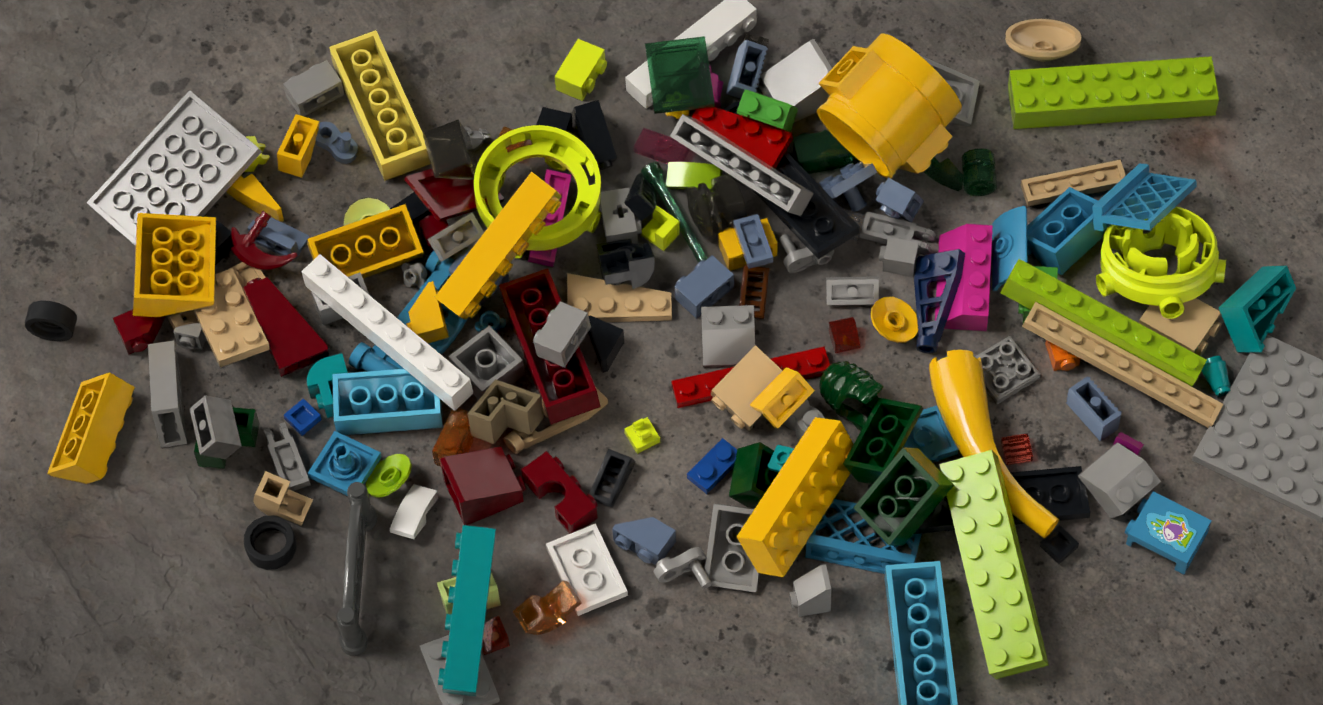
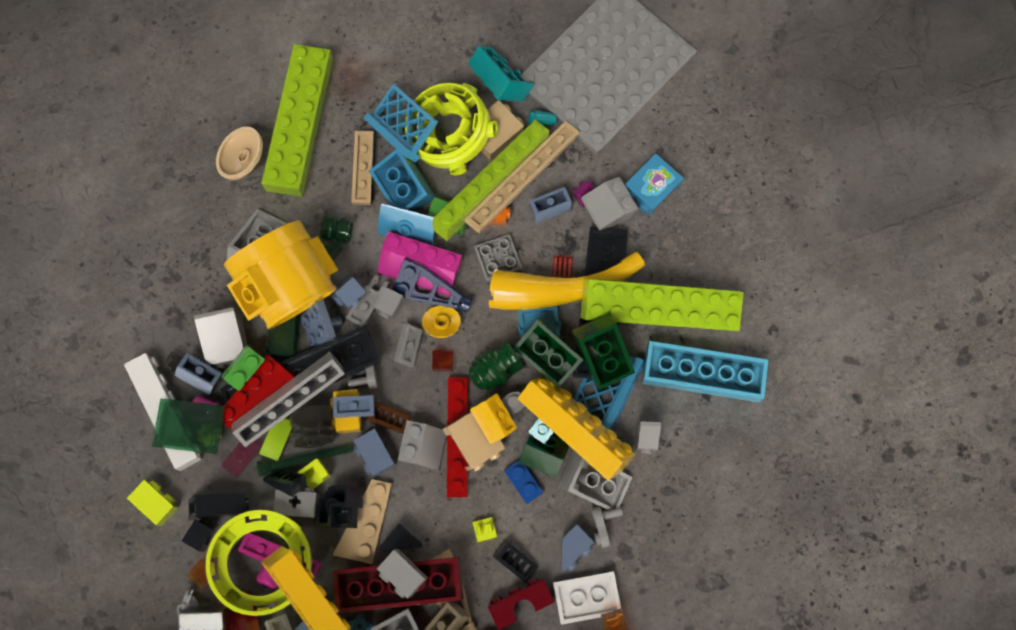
camera: 80 degrees left, 15 degrees up
(1059, 544) = (648, 257): black plate -> none

